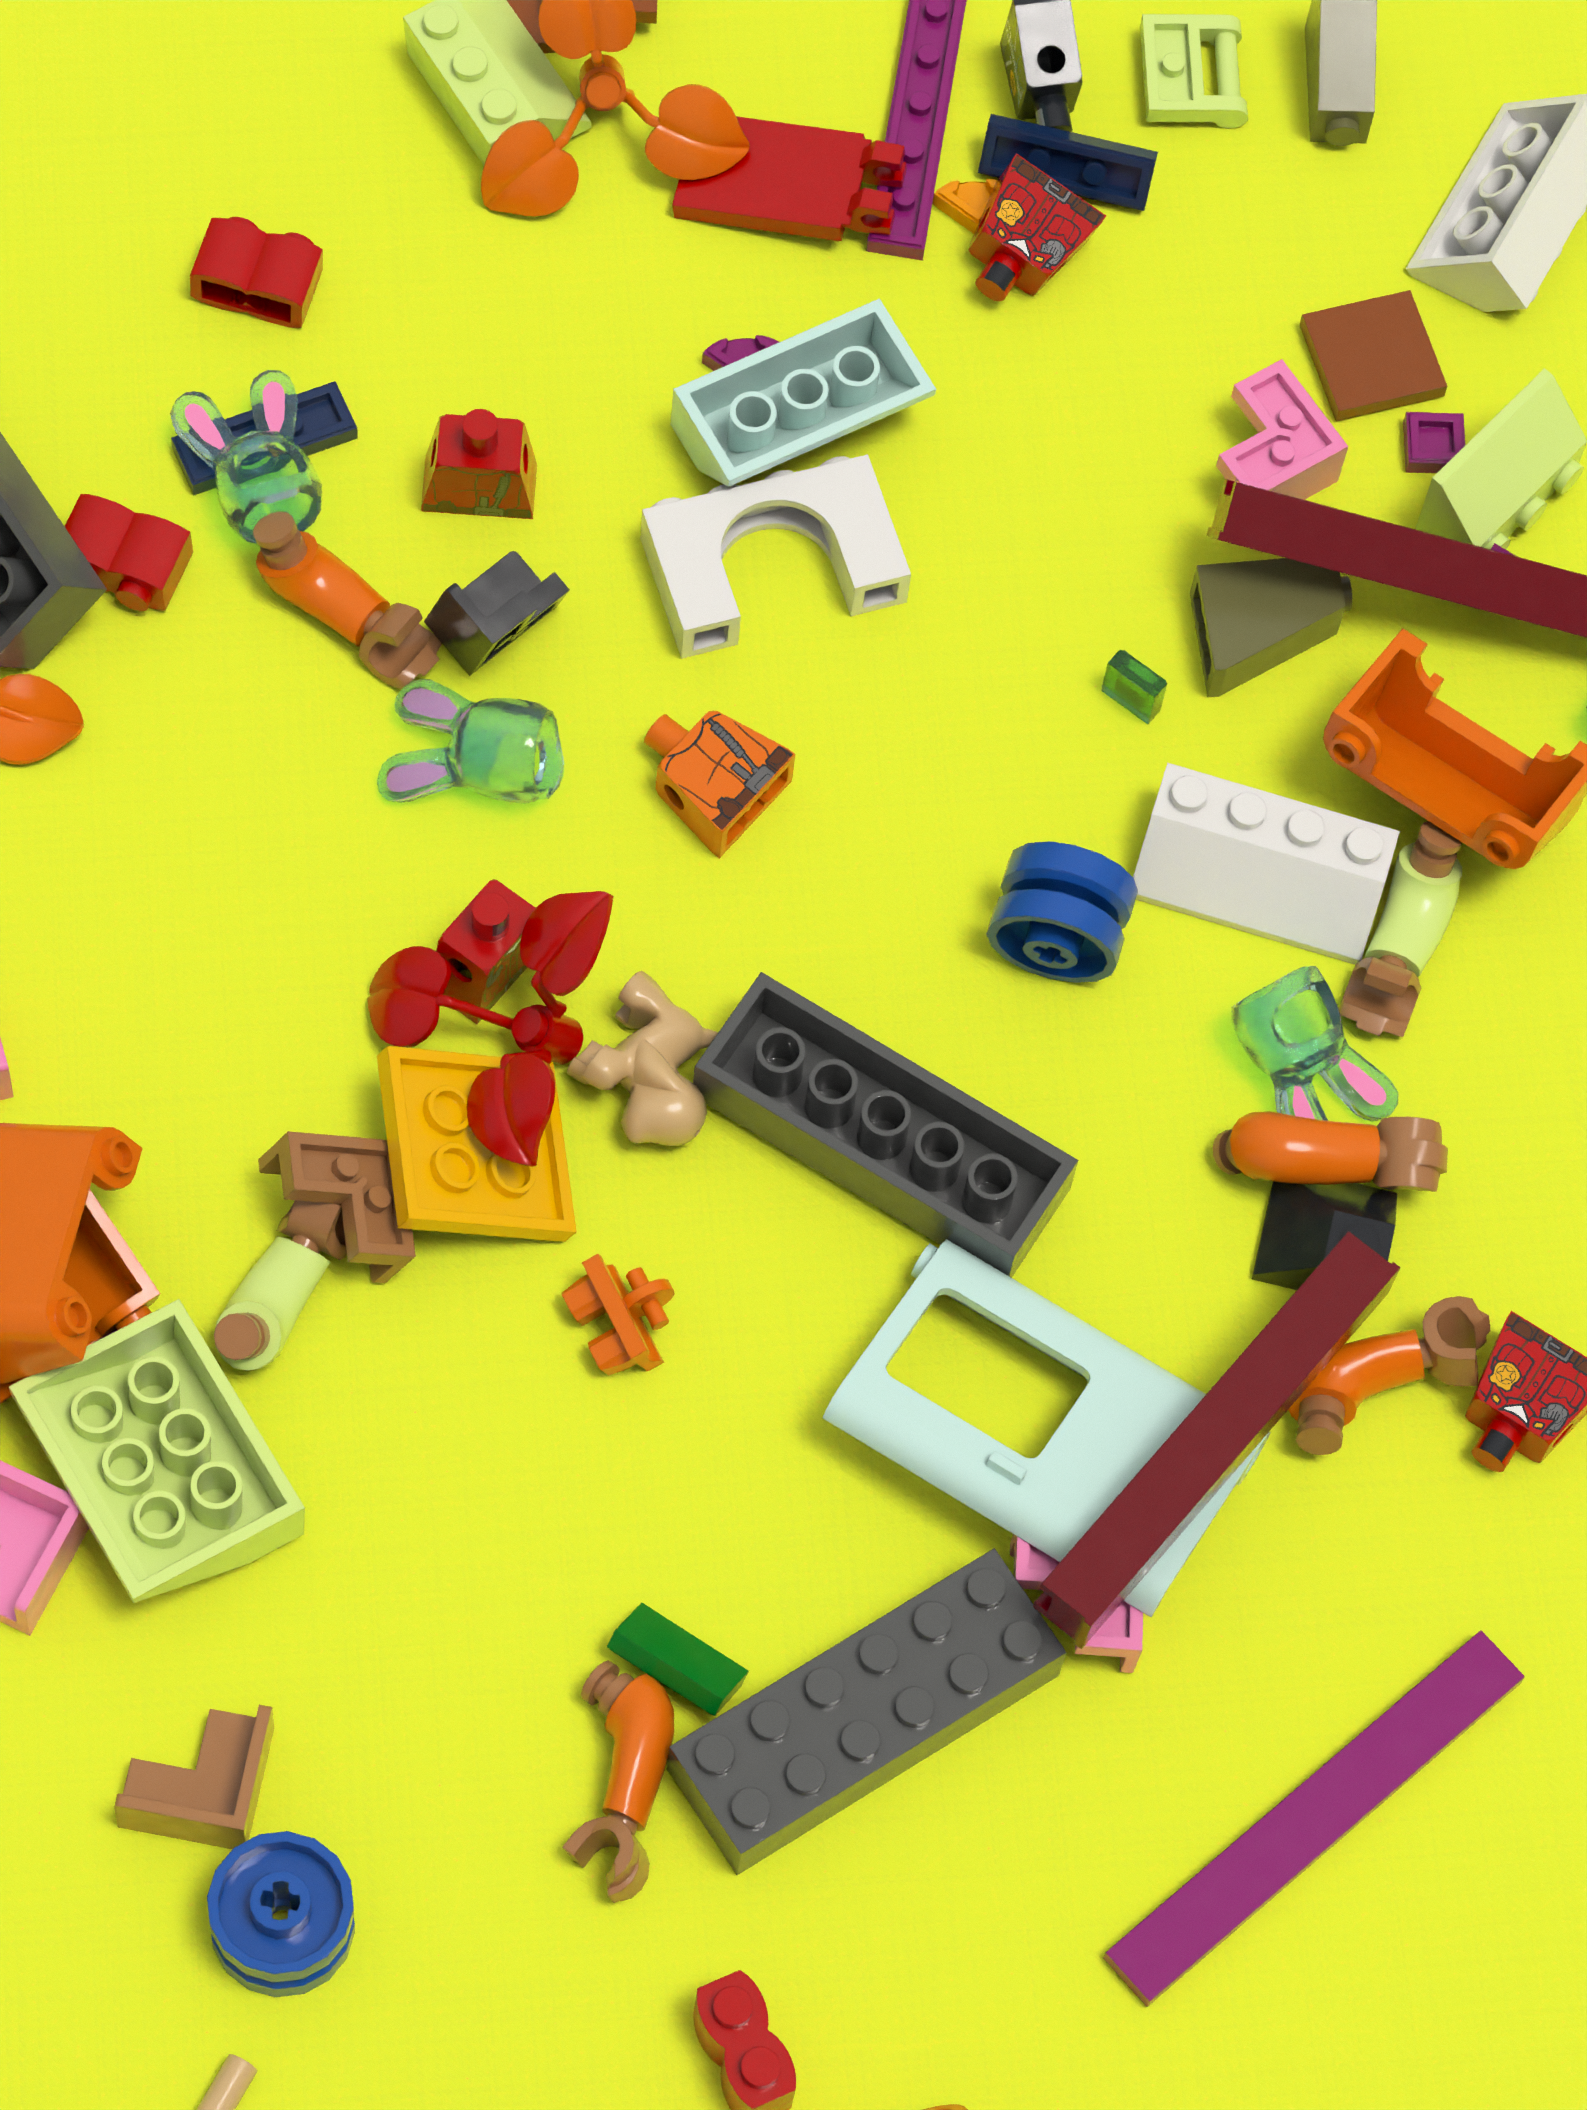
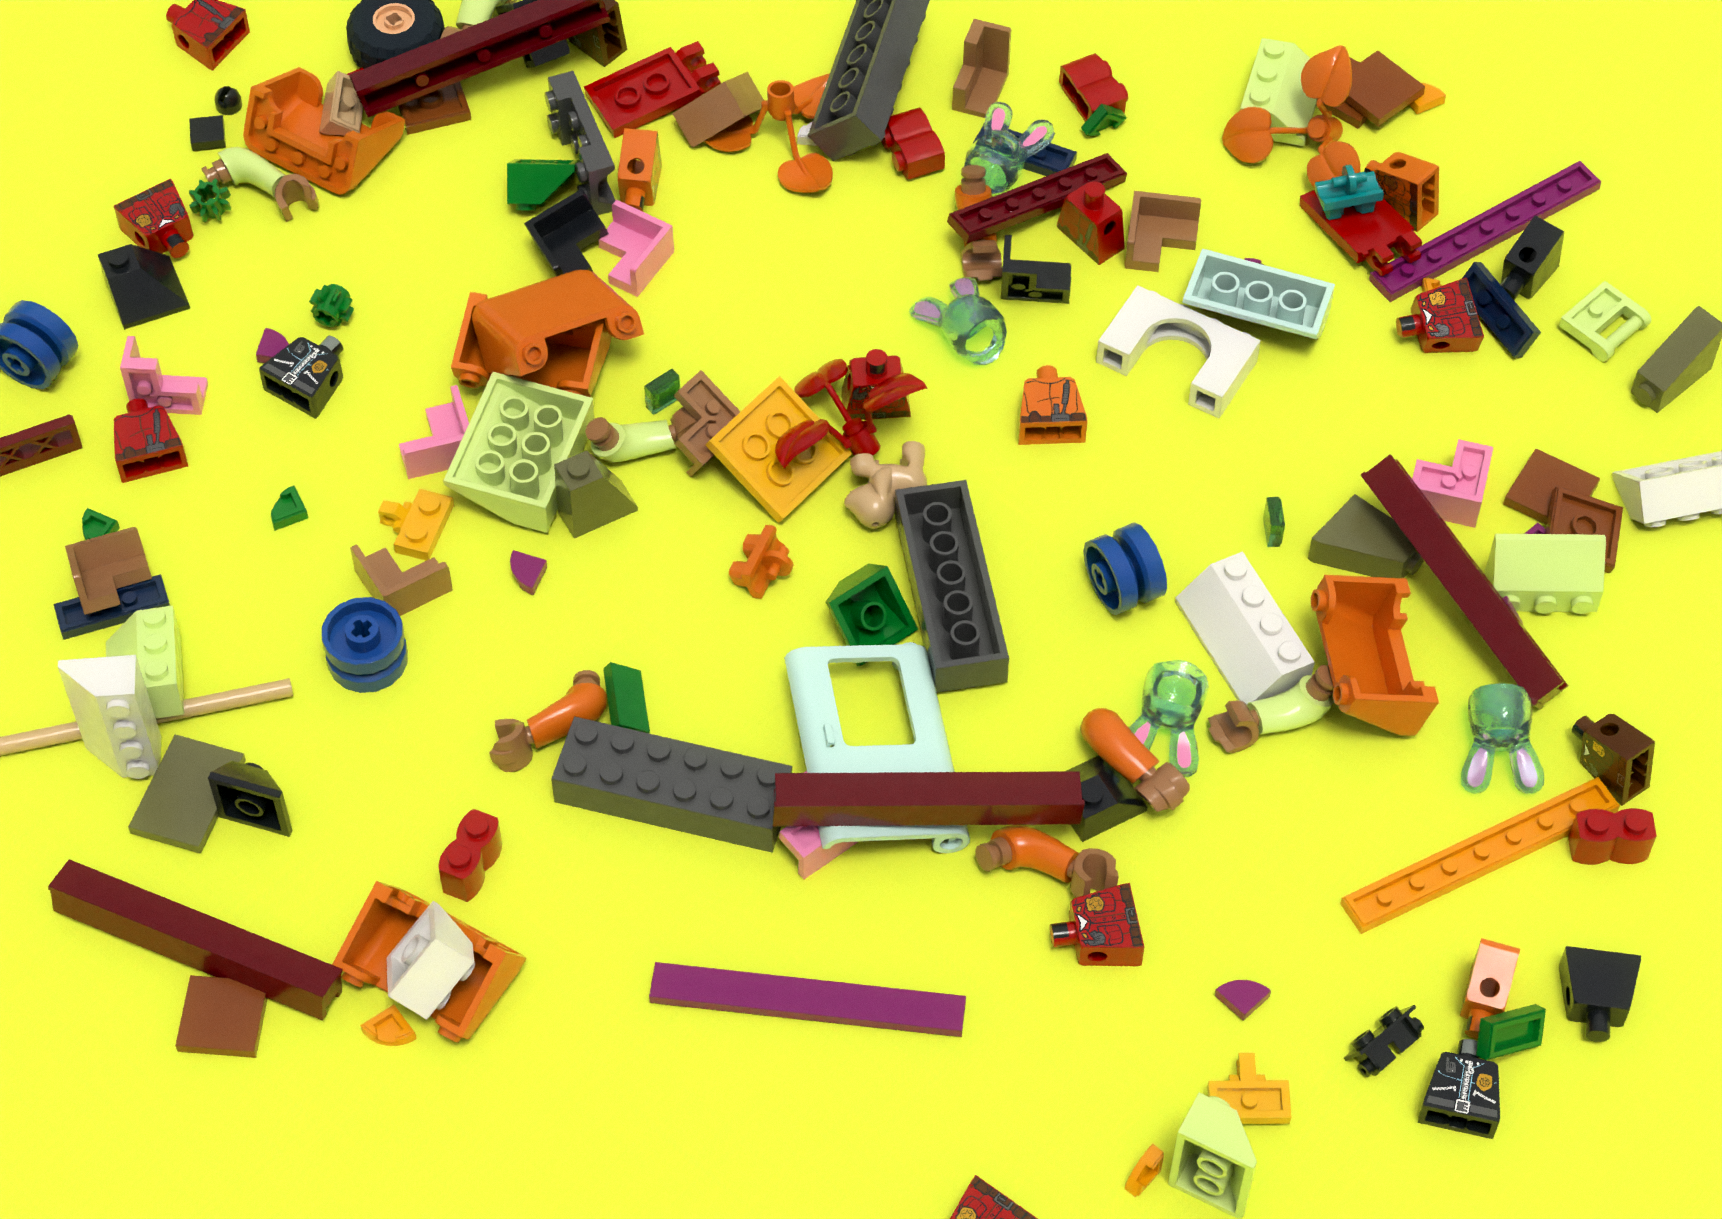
camera: 55 degrees right, 10 degrees down
(92, 370) = (983, 68): none -> medium nougat panel
(125, 1682) = (417, 523): none -> yellow hinge
(224, 1201) = (661, 391): none -> clear green tile
(319, 295) = (1103, 118): none -> green tile
(323, 1437) = (589, 494): none -> olive slope
(342, 1610) = (527, 570): none -> magenta tile
(374, 495) = (1032, 198): none -> dark red tile
(553, 396) = (1157, 223): none -> medium nougat panel
(749, 153) = (1348, 190): none -> teal hips
(791, 80) = (1409, 187): none -> orange torso
(824, 1251) = (870, 608): none -> green slope
(1461, 373) = (1582, 514): none -> dark orange tile

